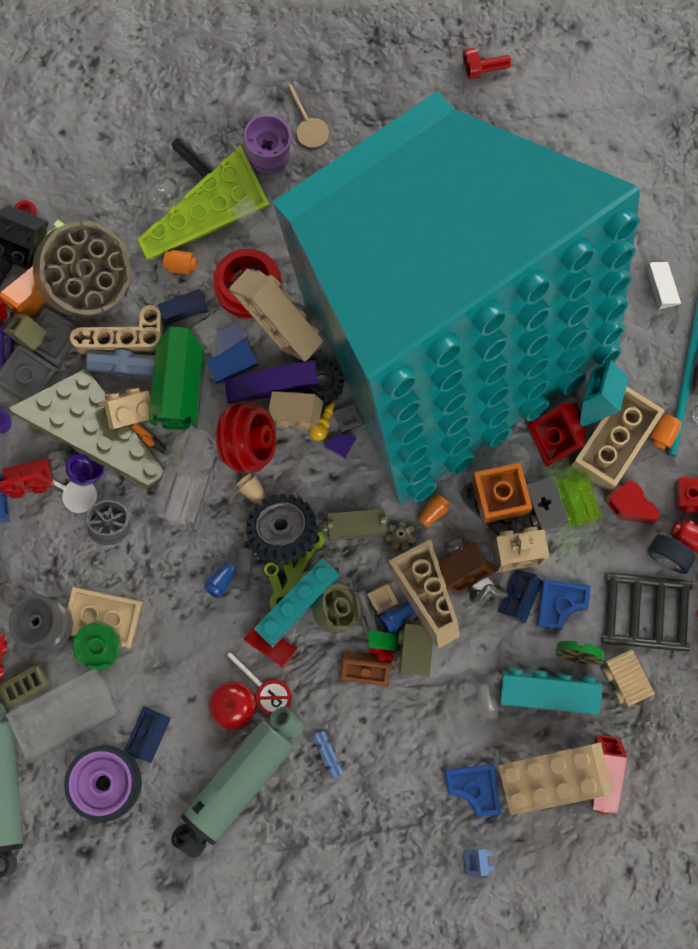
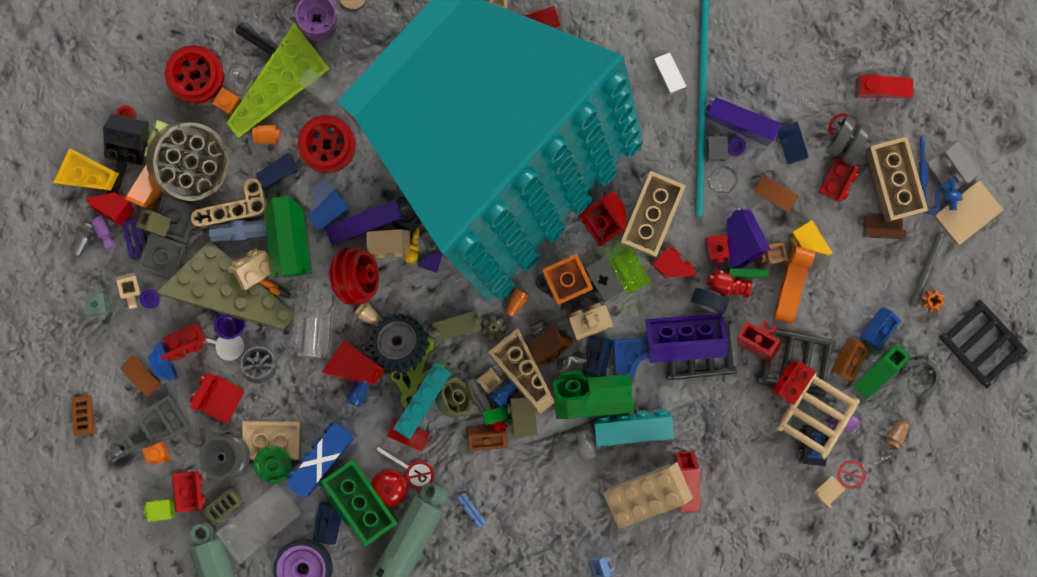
camera: 15 degrees left, 10 degrees up
(48, 551) = (216, 397): none -> red bracket
(119, 195) = (211, 84): none -> red wheel
(142, 216) = (226, 101): none -> orange brick
(156, 650) = (322, 458): none -> blue brick
(189, 715) = (357, 503): none -> green brick
(220, 545) = (353, 365): none -> red slope
(276, 314) = (356, 169): tan brick -> none
(476, 786) = (589, 510): blue tile -> none
(507, 640) = (592, 396): none -> green brick
(580, 654) = (656, 393): tile -> none
(603, 393) = (634, 182): teal slope -> none
(627, 679) = (691, 404): tan brick -> none
(635, 594) = (686, 338): none -> dark purple slope
(665, 431) = (690, 200): orange brick -> none

